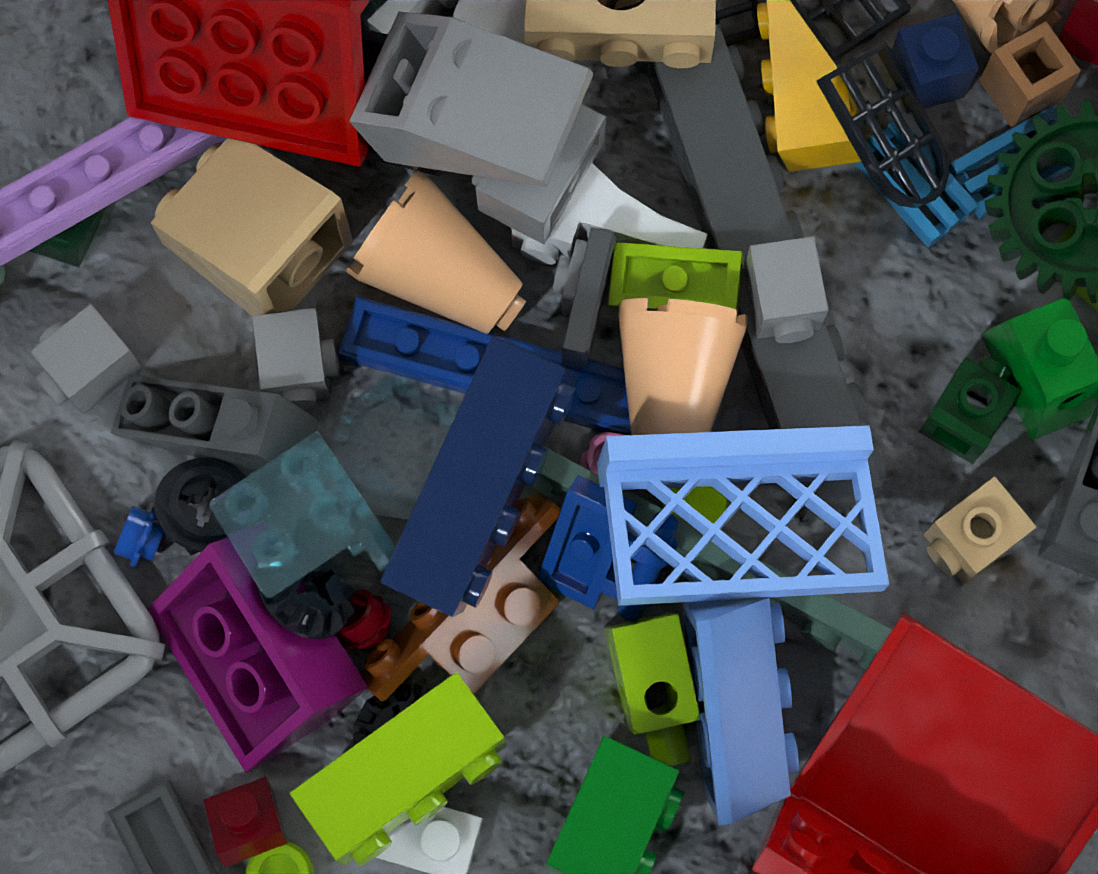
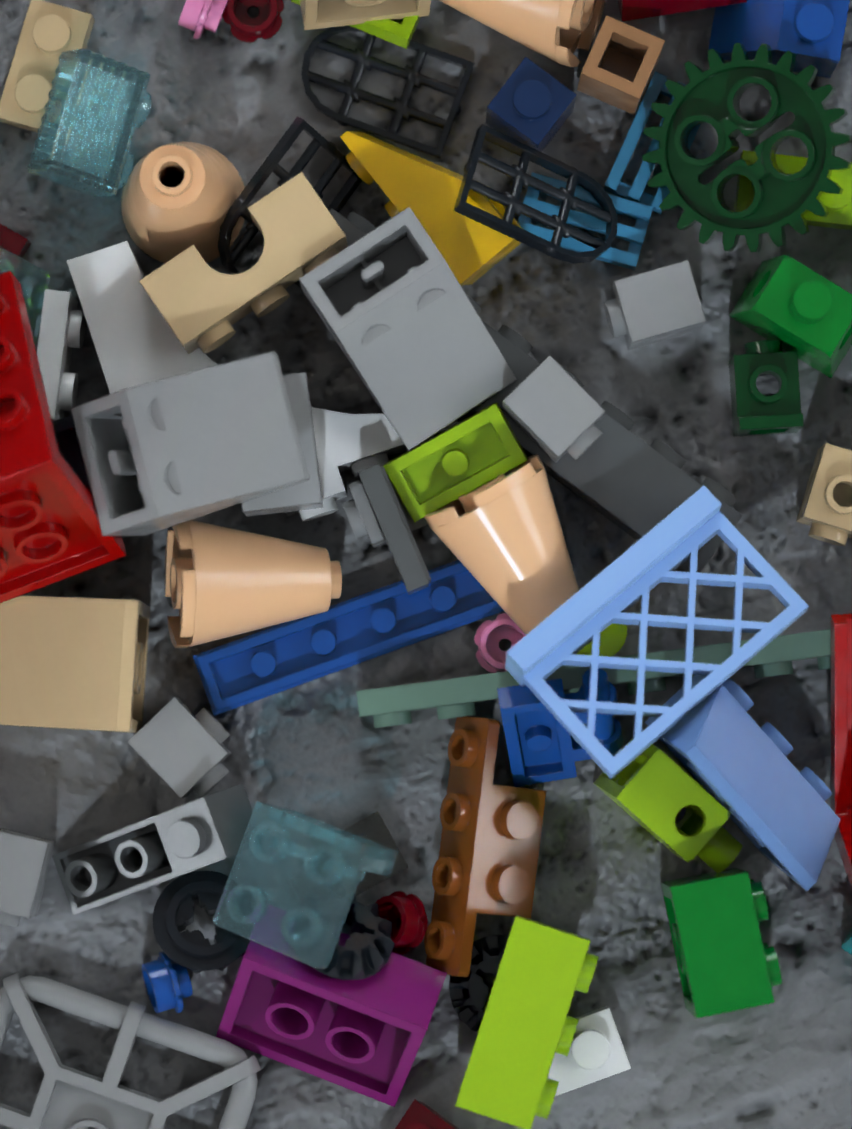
camera: 35 degrees left, 10 degrees up
(480, 476) = (421, 744): dark blue wedge -> none
(713, 142) = (407, 328): none -> light grey slope
(926, 280) = (655, 306): none -> light grey brick

